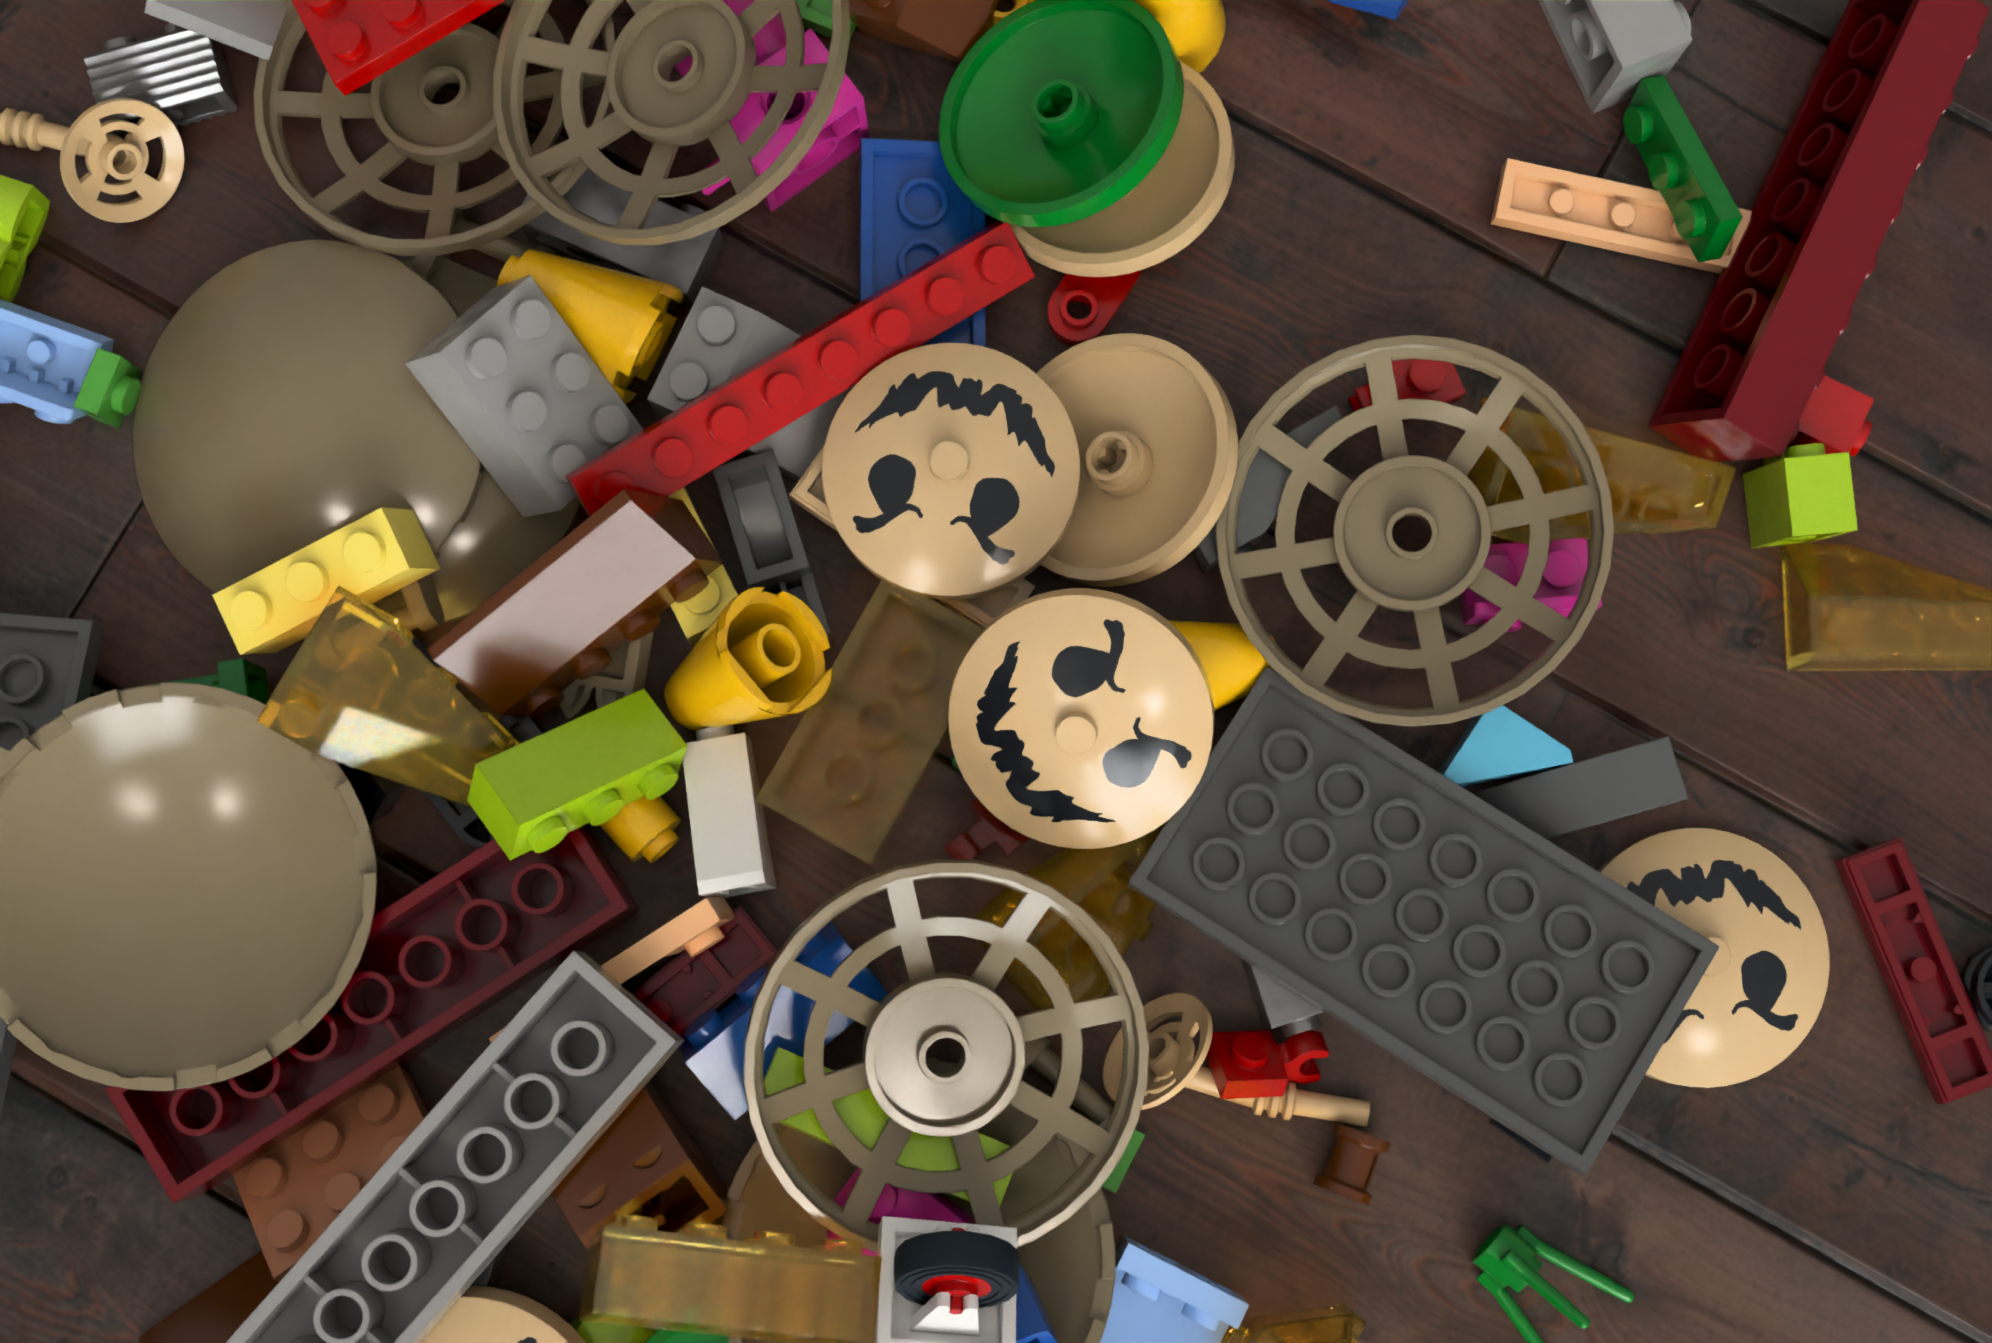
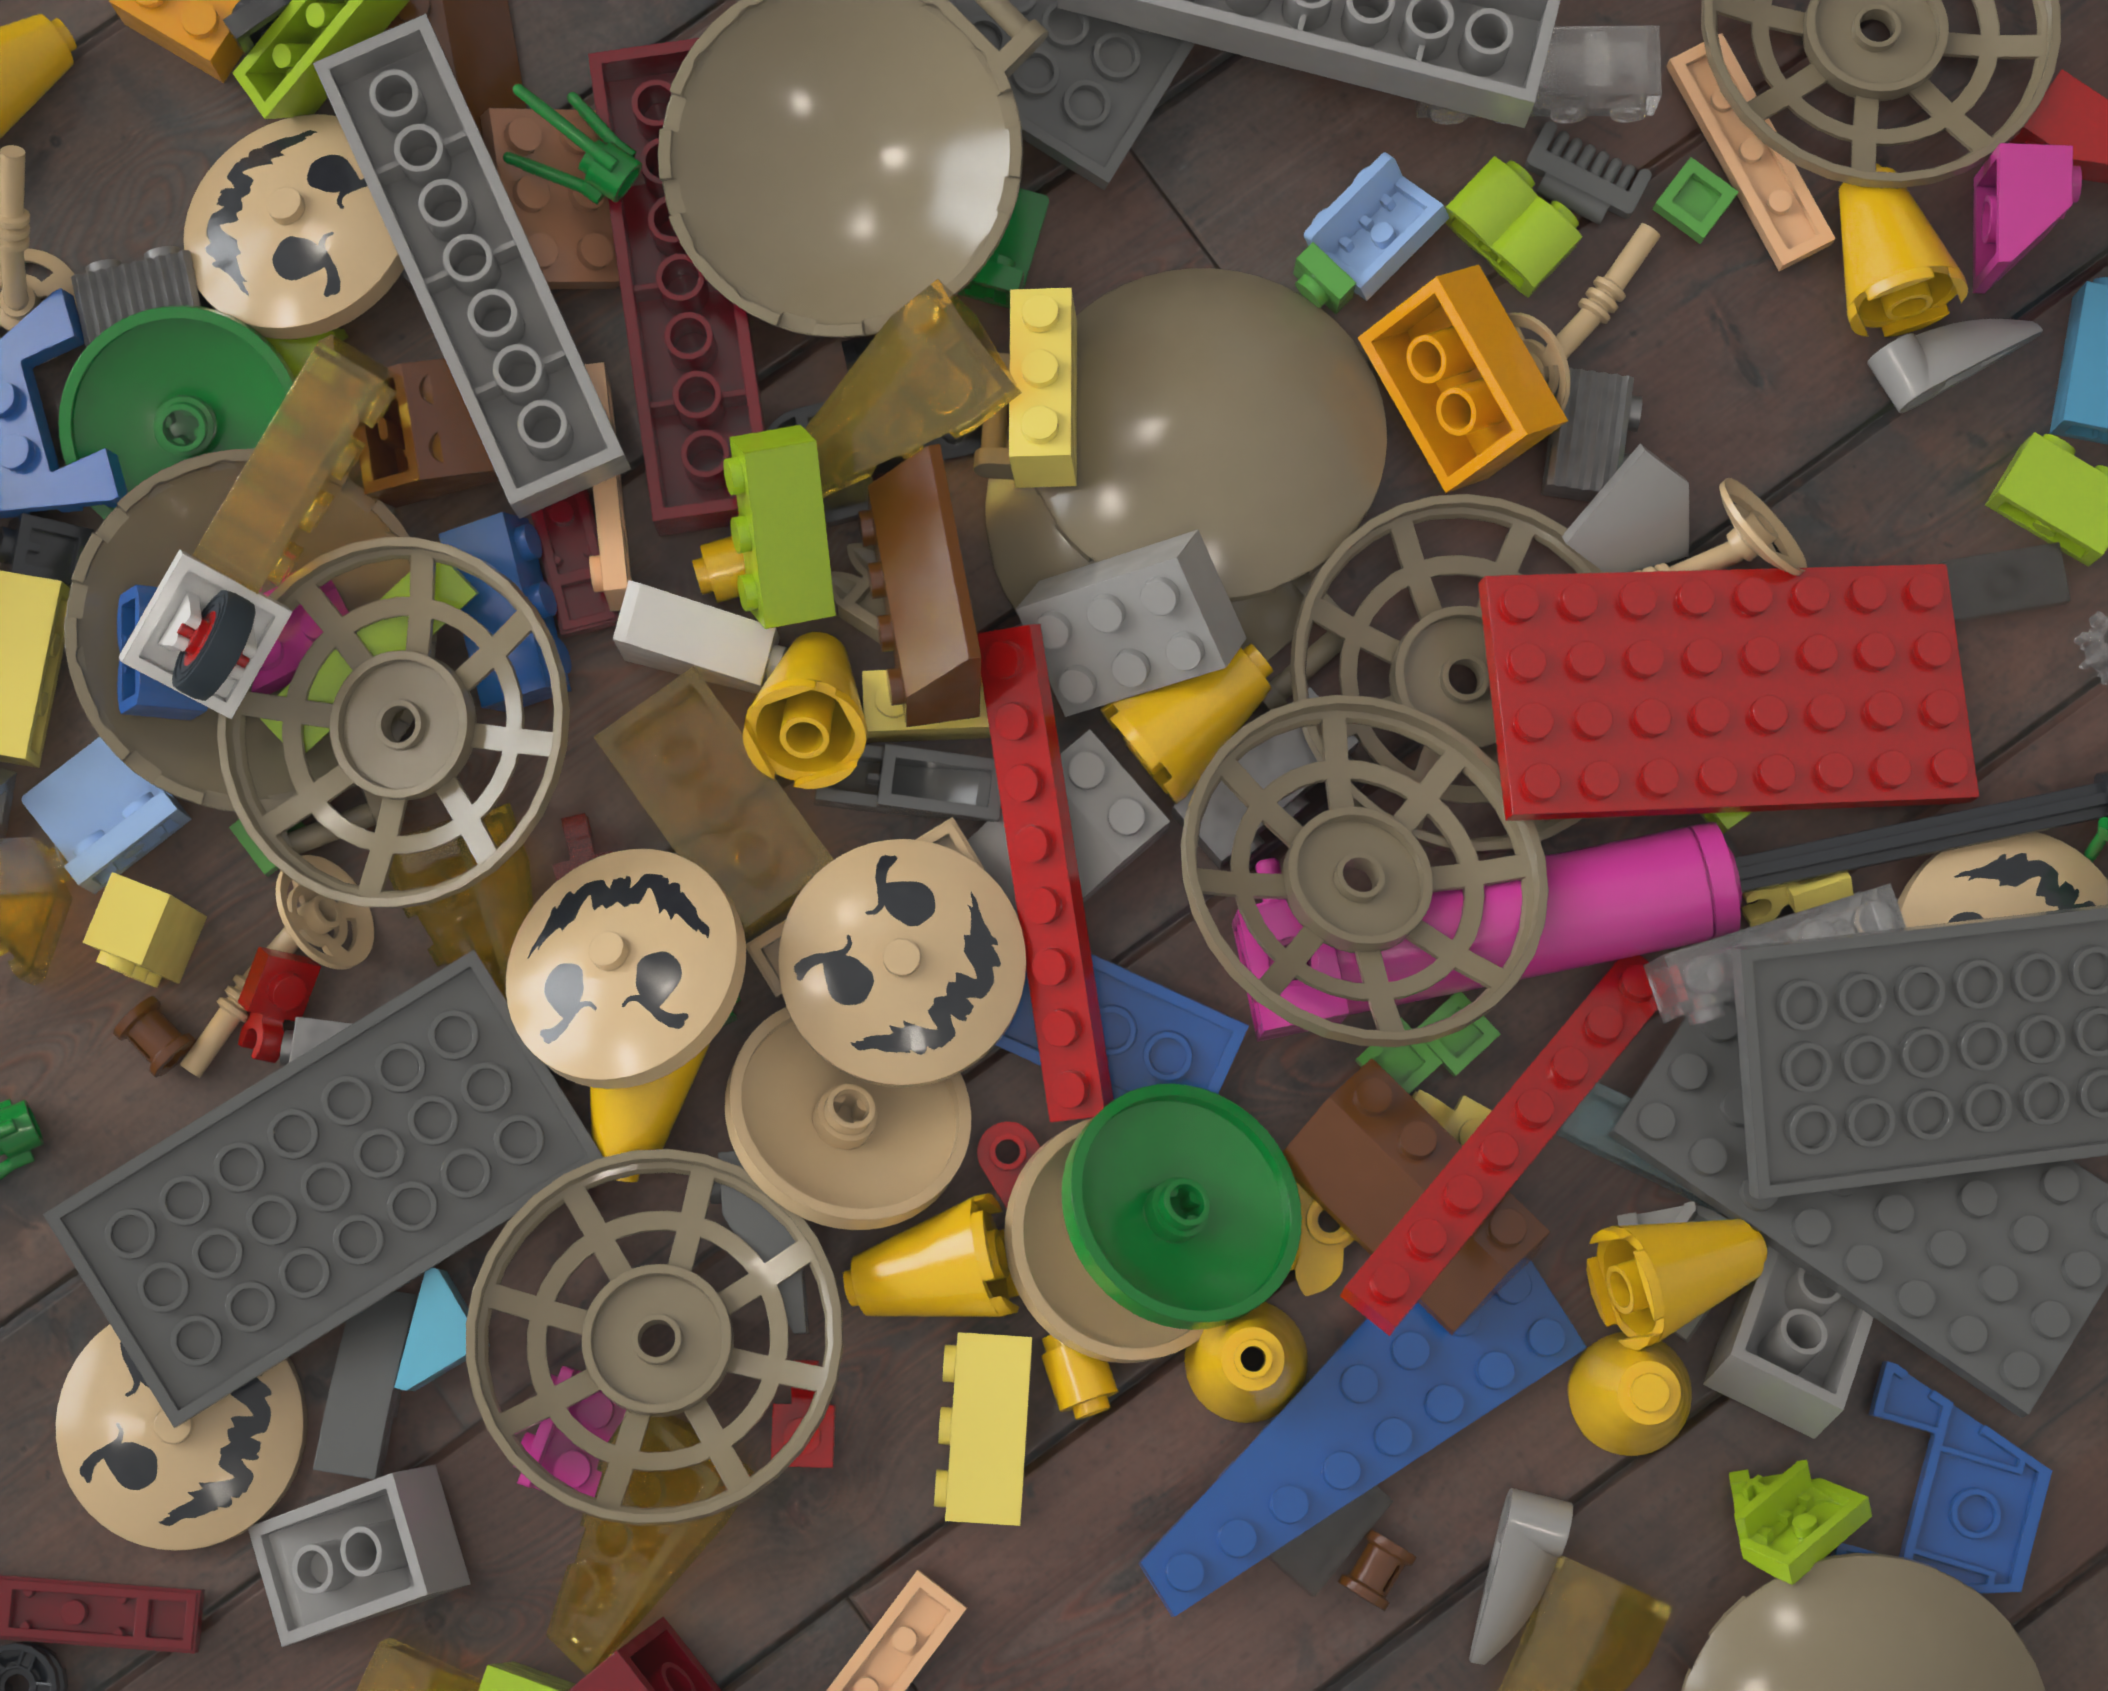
camera: 115 degrees right, 0 degrees up
(151, 205) = (1462, 378): none -> light orange brick
(277, 1122) = (607, 164): none -> green plant
(1219, 317) = (937, 1268): none -> yellow cone
(1259, 154) = (1077, 1379): none -> yellow brick
(1266, 1215) = (143, 931): none -> light yellow brick
(1339, 213) = (985, 1428): none -> light yellow brick
(1736, 726) = (359, 1554): none -> light grey slope

